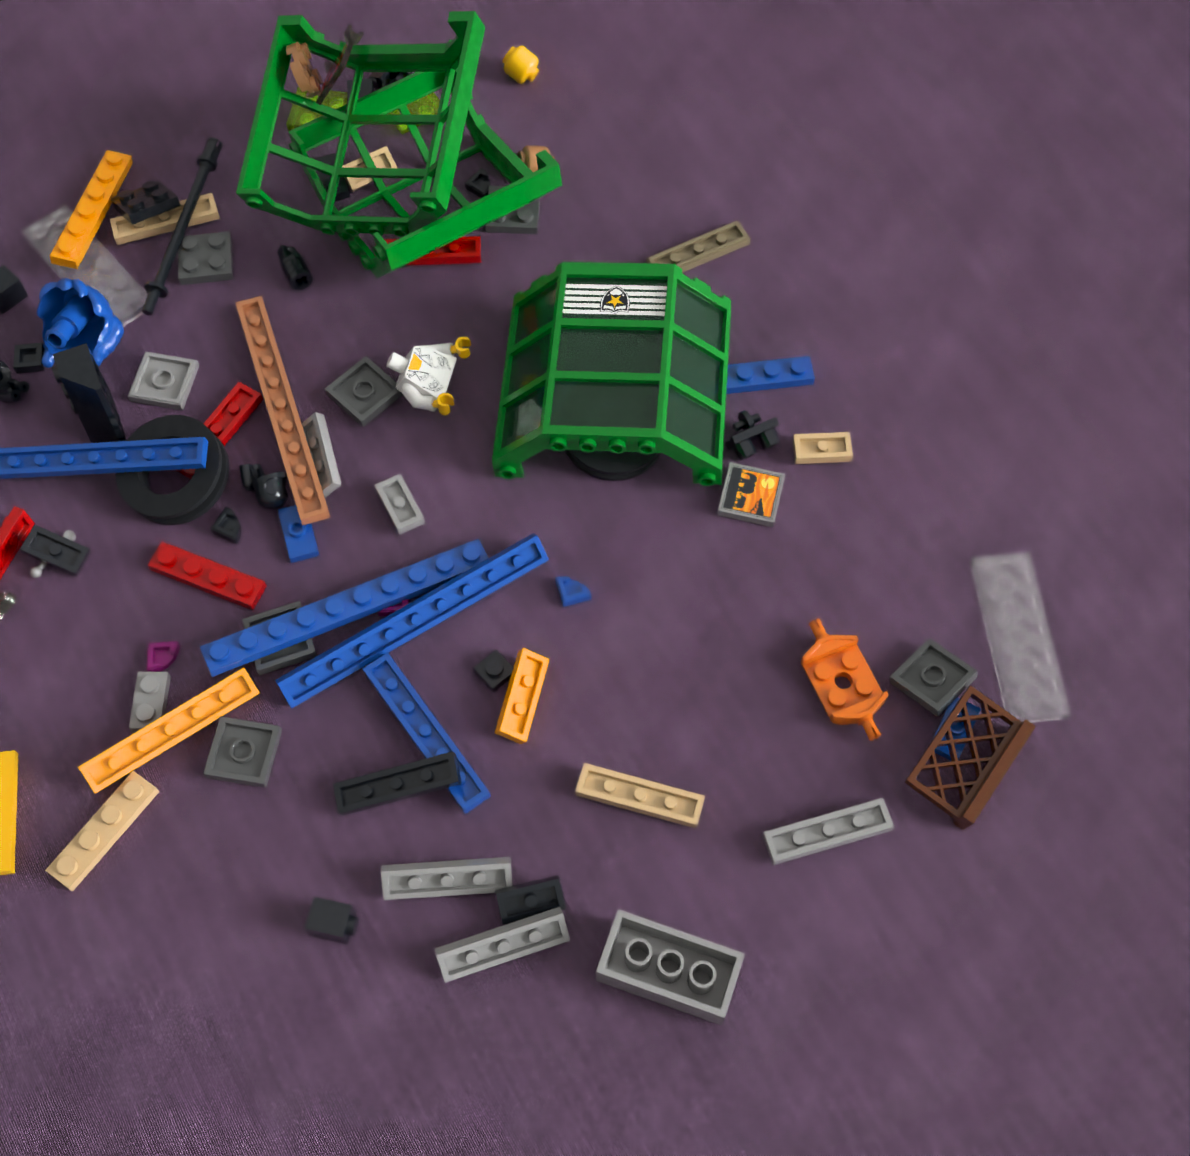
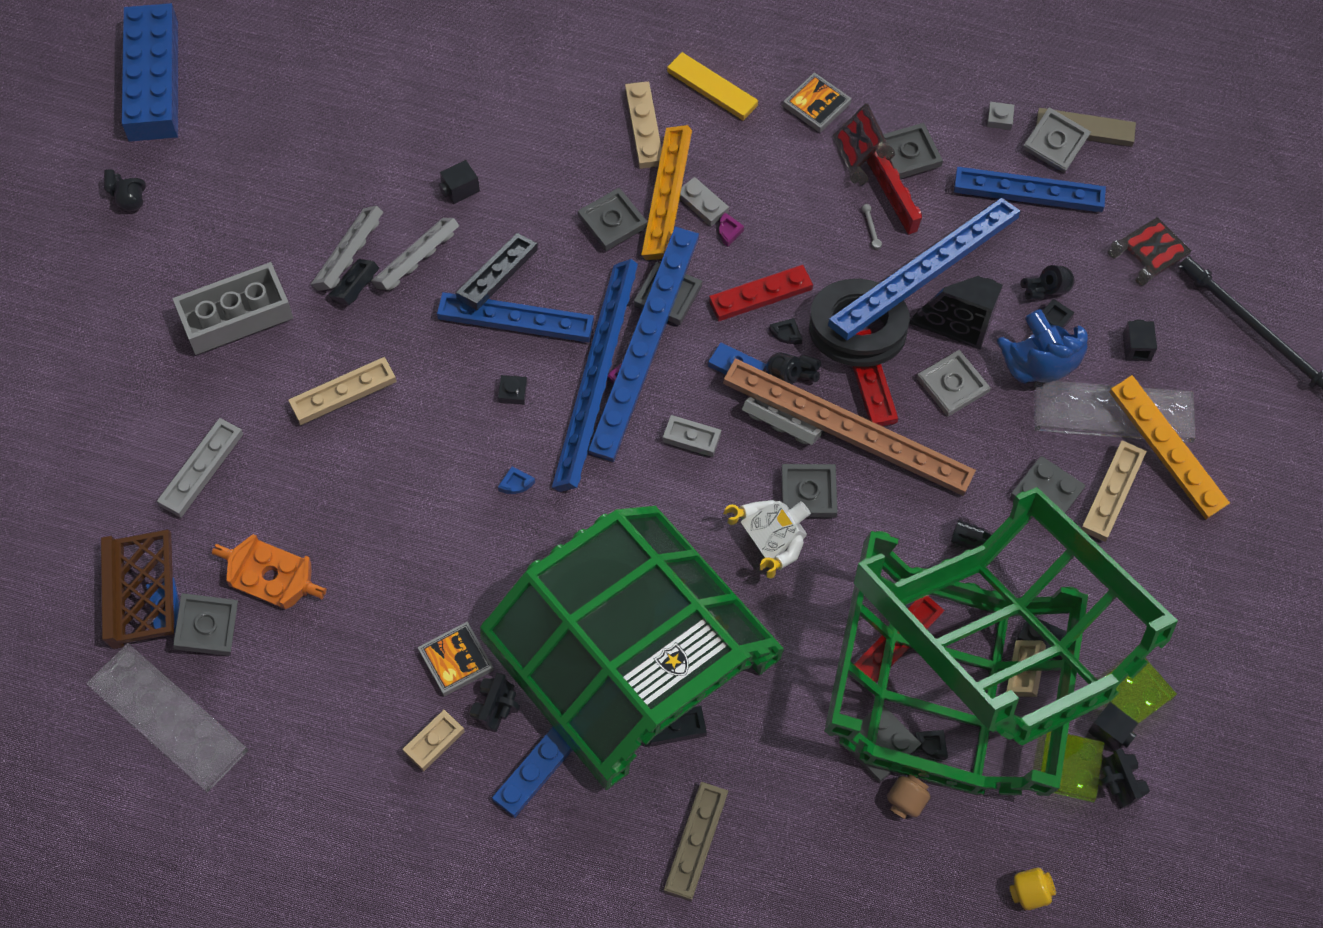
camera: 135 degrees right, 0 degrees up
(55, 550) = (866, 222): black plate -> none
(145, 202) = (1139, 484): black plate -> none
(207, 163) = (1137, 549): black bar -> none
(304, 74) = (1106, 620): medium nougat plate -> none
(335, 68) = (1101, 651): clear smoke flag -> none
(522, 696) = (476, 385): light orange plate -> none

